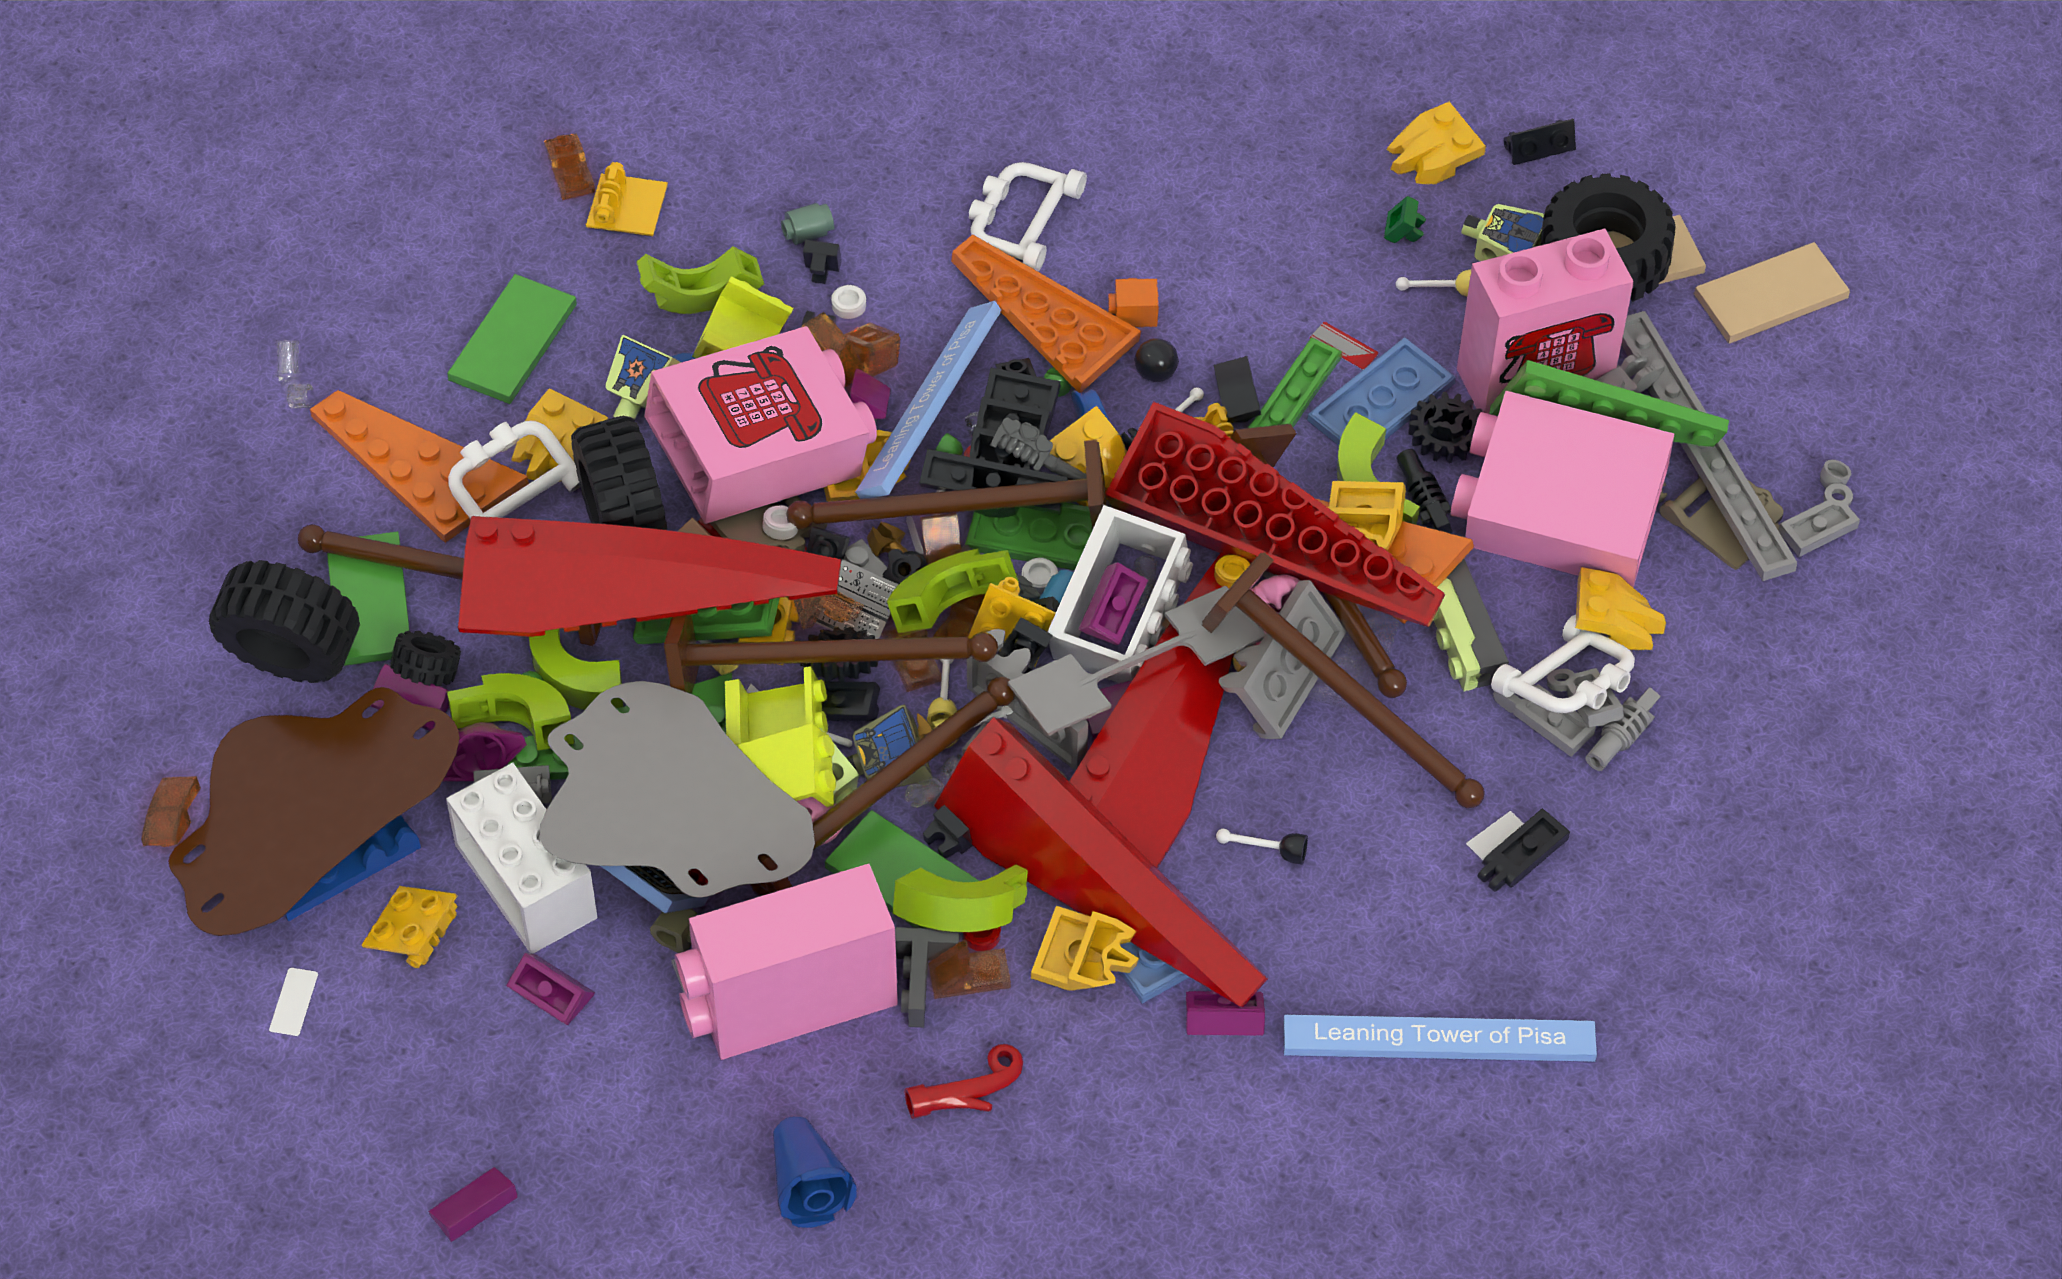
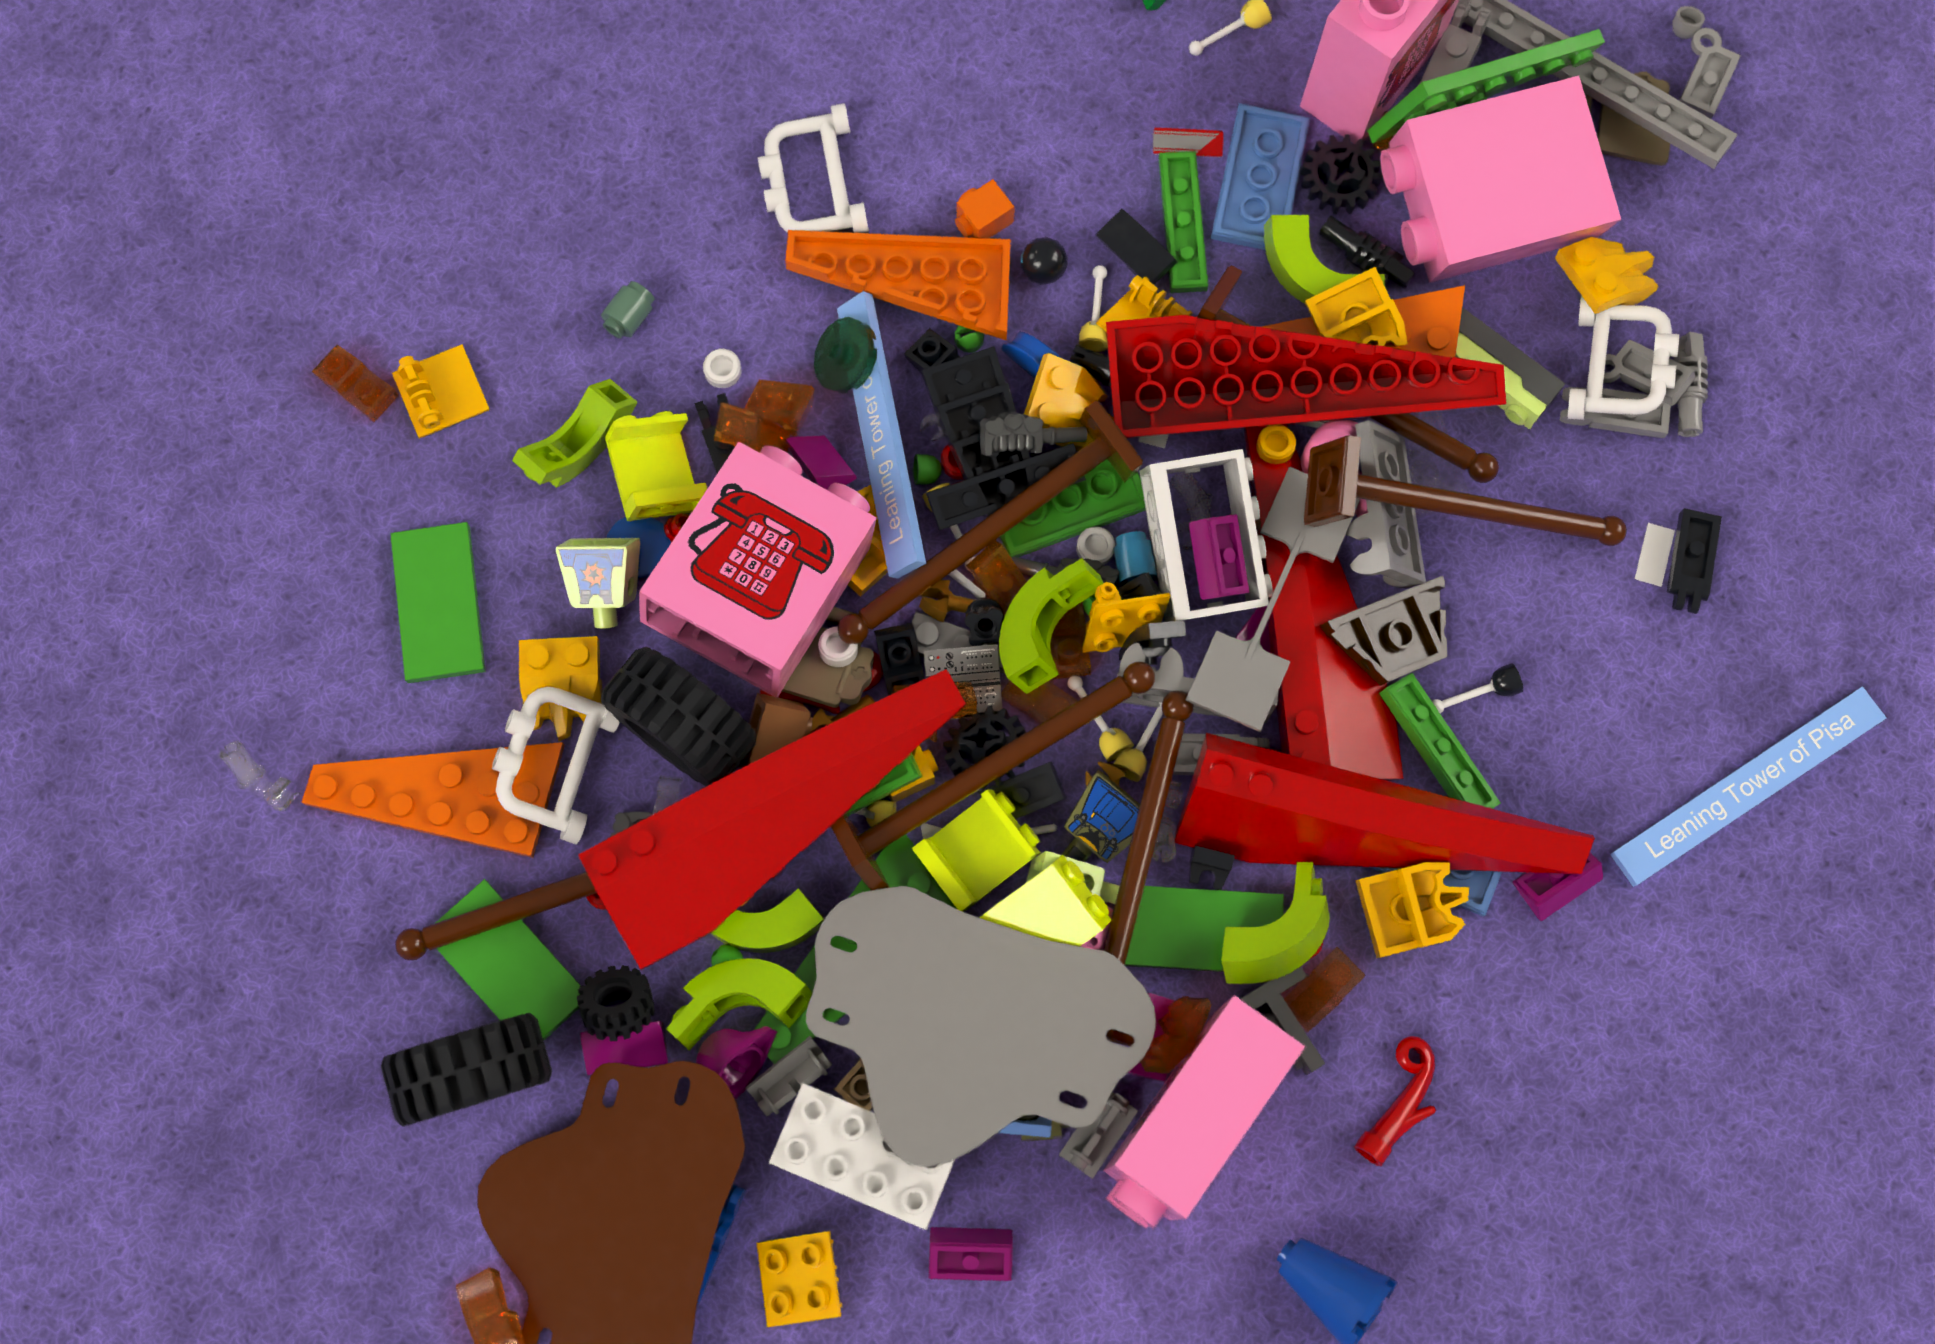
camera: 35 degrees left, 20 degrees up
(821, 259) = (668, 340): black tile -> none
(946, 337) = (845, 355): none -> clear green plate
(1201, 852) = (1437, 743): none -> bright green tile
(1226, 757) = (1394, 633): none -> wing

